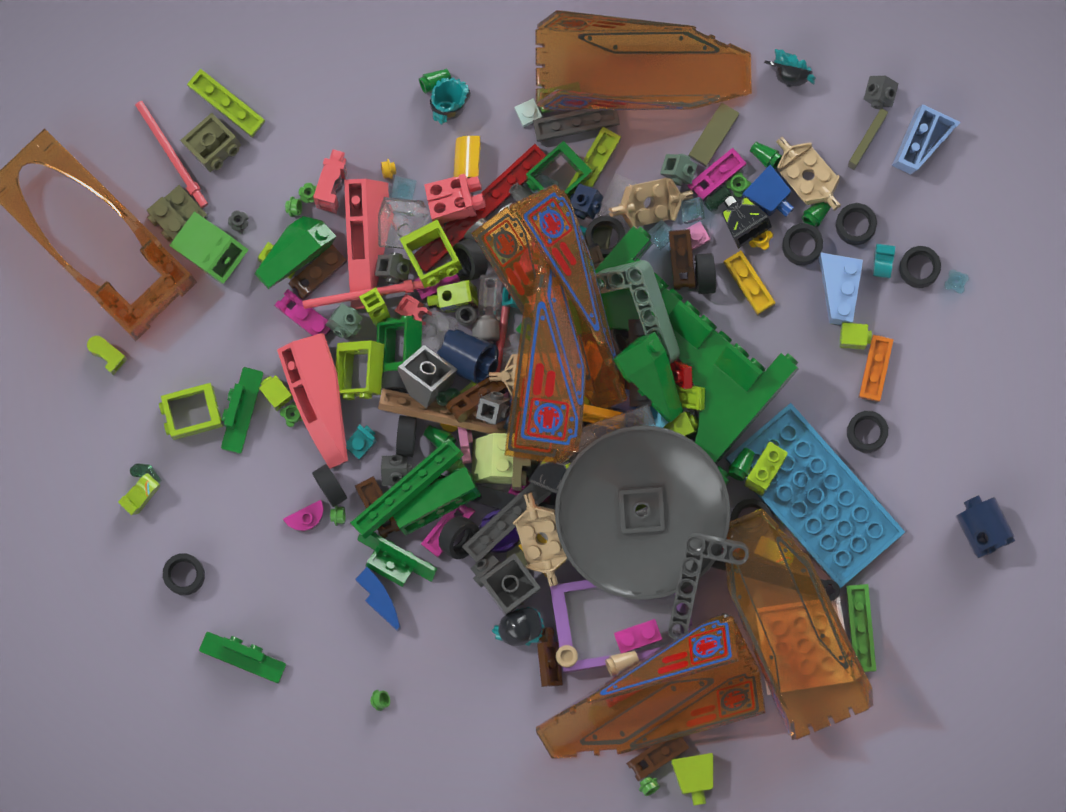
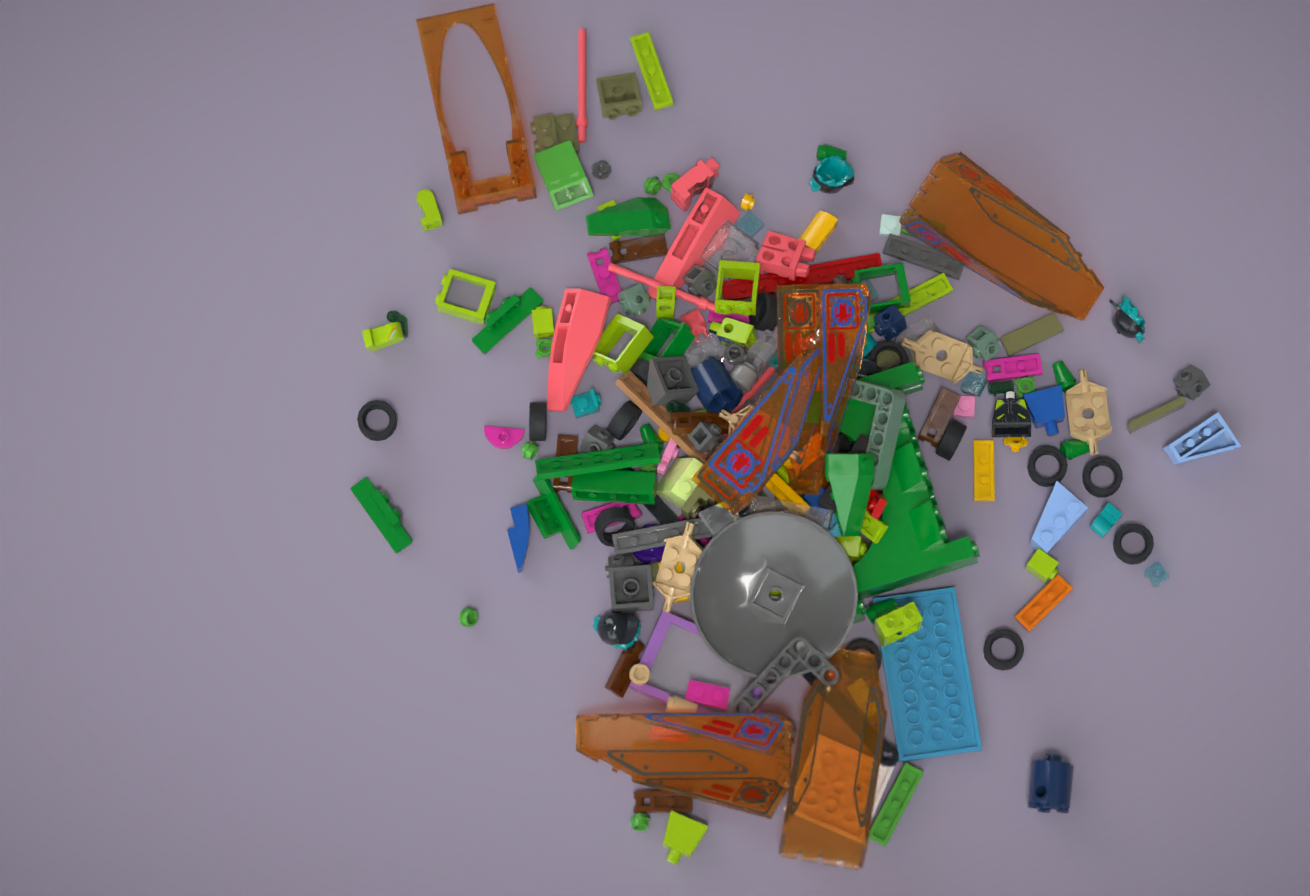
camera: 30 degrees right, 5 degrees down
(660, 234) = (933, 387): clear light blue plate -> none

